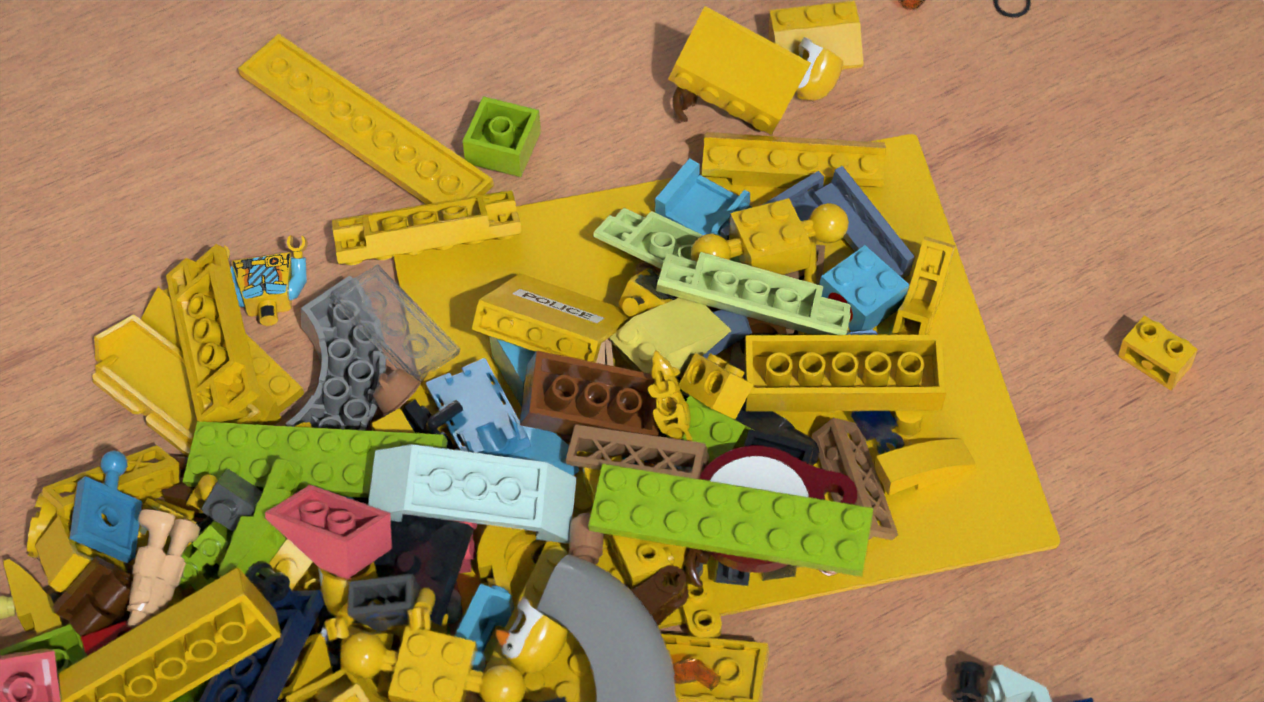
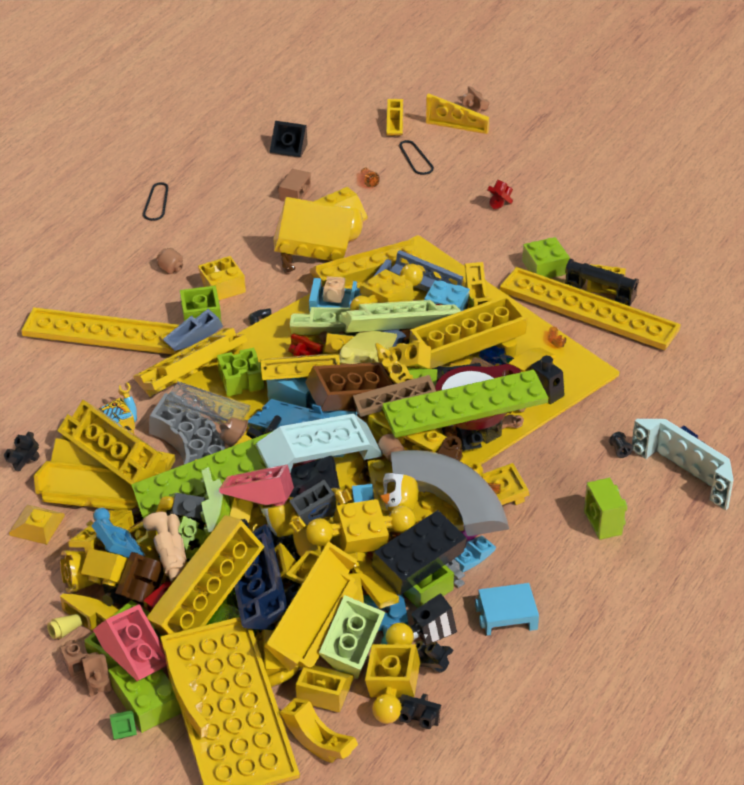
camera: 30 degrees left, 15 degrees down
(64, 414) = (36, 524): none -> yellow slope
(109, 285) = (25, 451): none -> black hips
(461, 178) = (193, 330): none -> sand blue slope
(472, 278) = (240, 371): none -> lime brick
(517, 28) = (170, 260): none -> nougat head
(567, 94) = (224, 275): none -> yellow slope
(583, 181) = (259, 314): none -> black arm
(598, 280) = (303, 346): none -> red hips
(708, 192) = (334, 289): none -> light nougat brick
(920, 504) = (550, 378): none -> black torso
(993, 432) = (554, 339): none -> clear orange arm
(1084, 269) = (545, 257): none -> lime brick
(1093, 110) = (500, 193): none -> red hips
(1098, 399) = (590, 308): none -> yellow plate
(1107, 329) = (625, 287): none -> black piece

